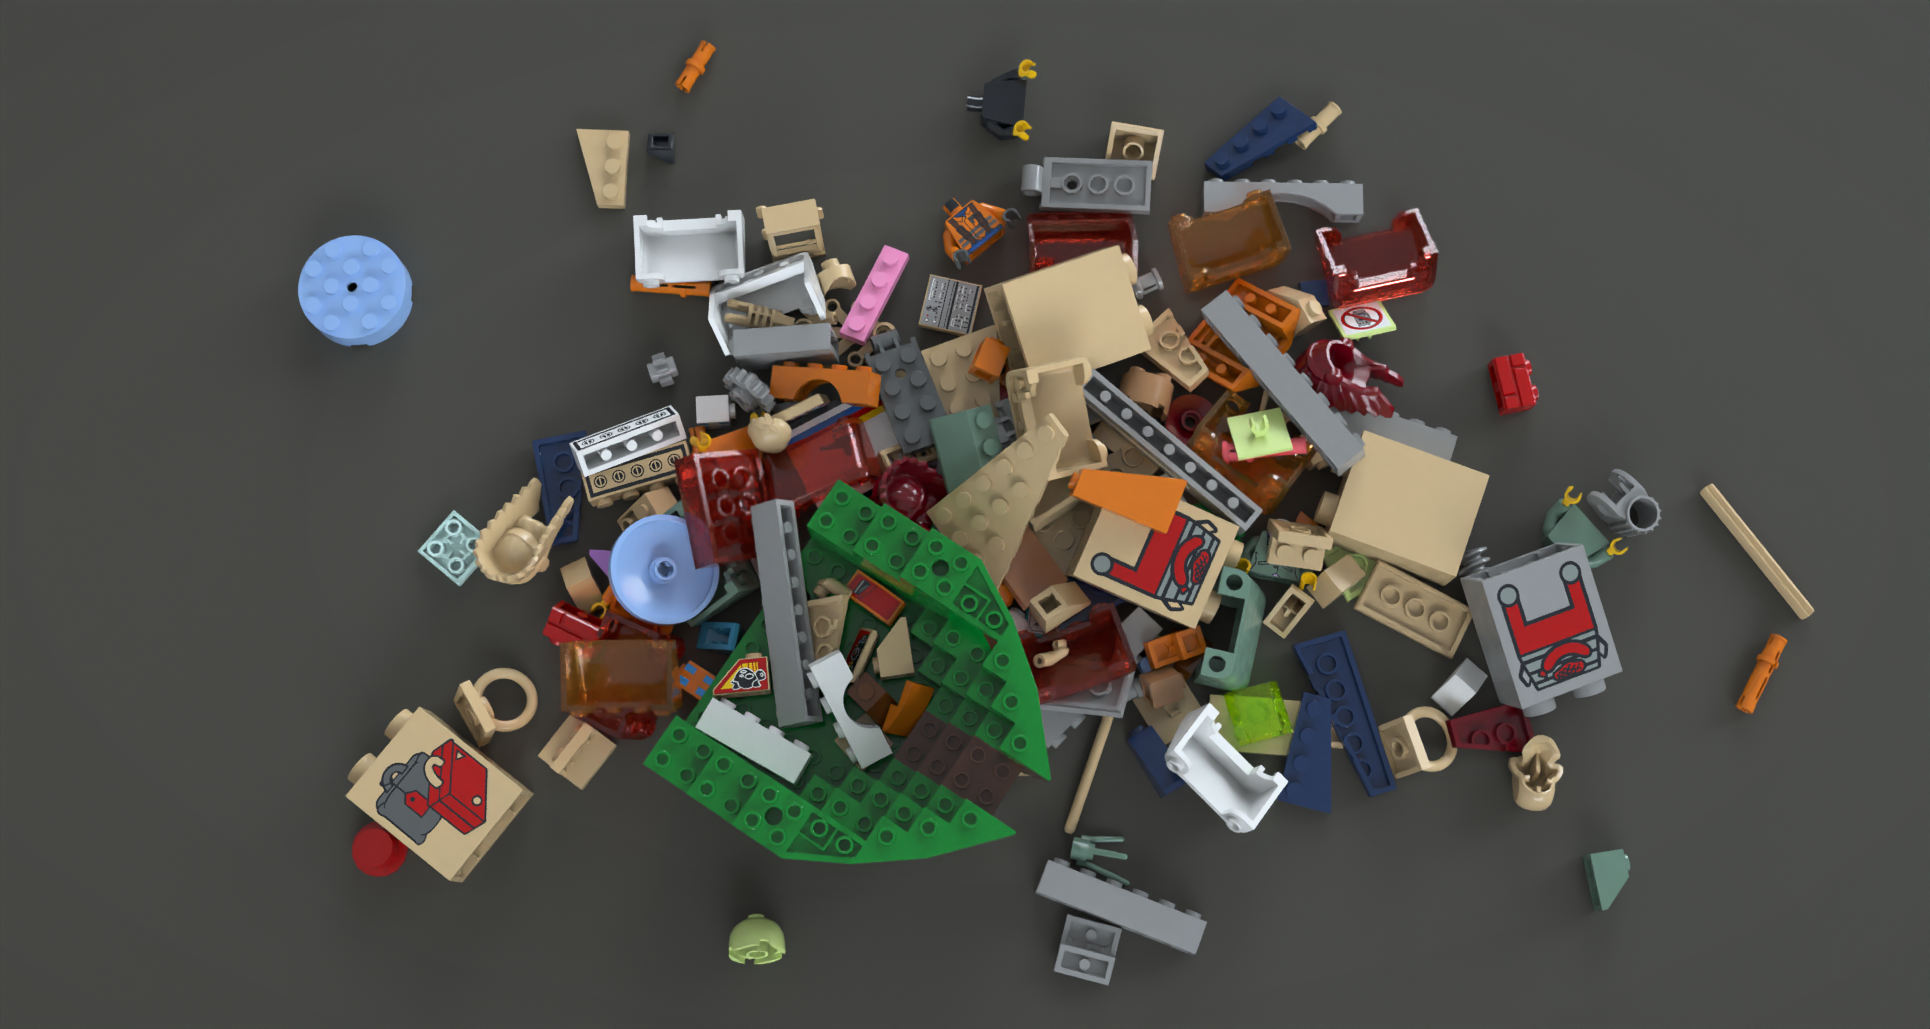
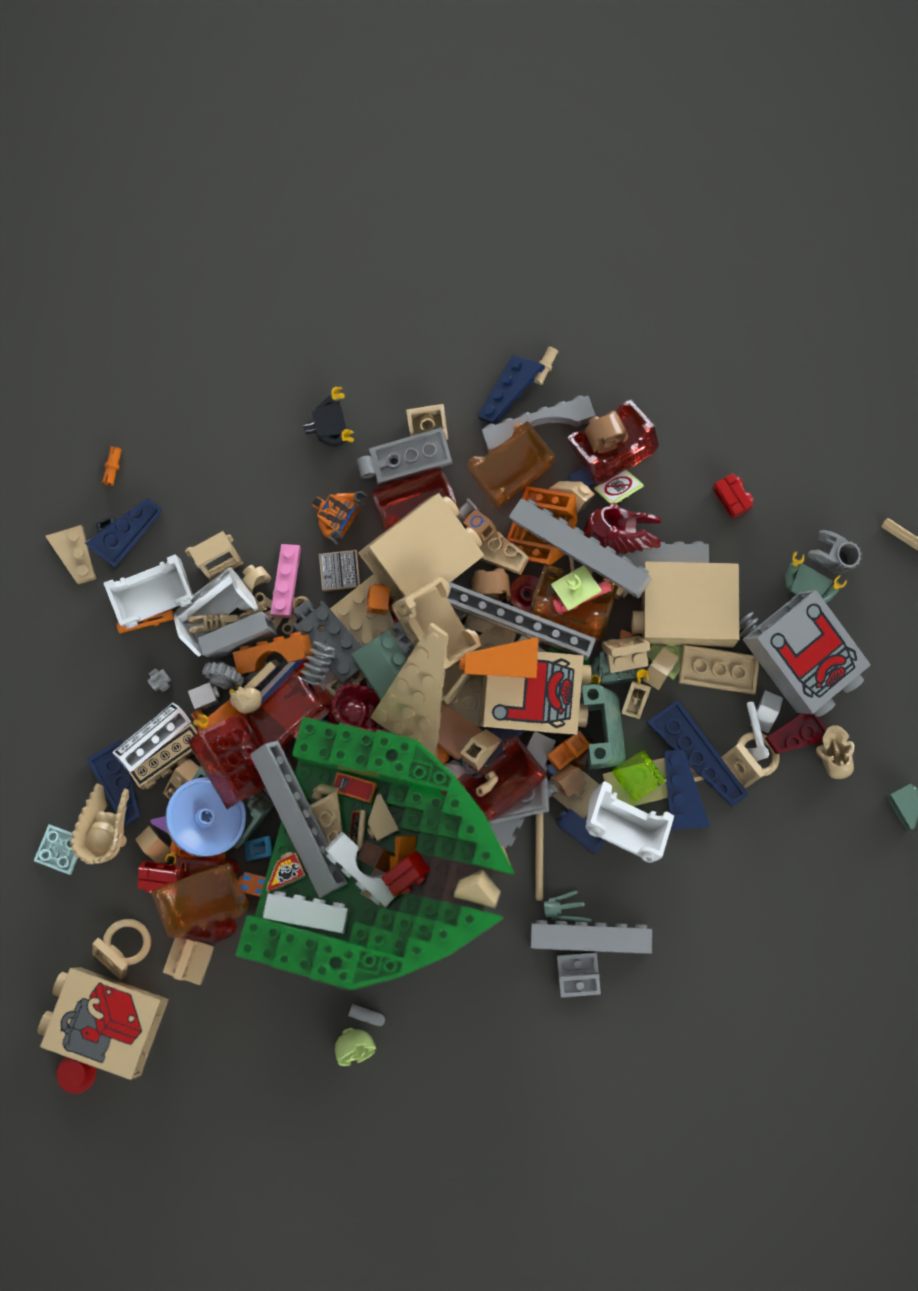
camera: 10 degrees left, 0 degrees up
(680, 160) = (121, 535): none -> dark blue wing
(787, 905) = (366, 1015): none -> light grey bar
(881, 417) = (318, 663): none -> light grey piece
(904, 733) = (405, 874): none -> red brick
(995, 785) = (478, 889): none -> tan slope
(1159, 307) = (480, 524): none -> medium nougat brick
(1369, 241) = (605, 432): none -> medium nougat brick
(1434, 738) = (761, 751): none -> white piece

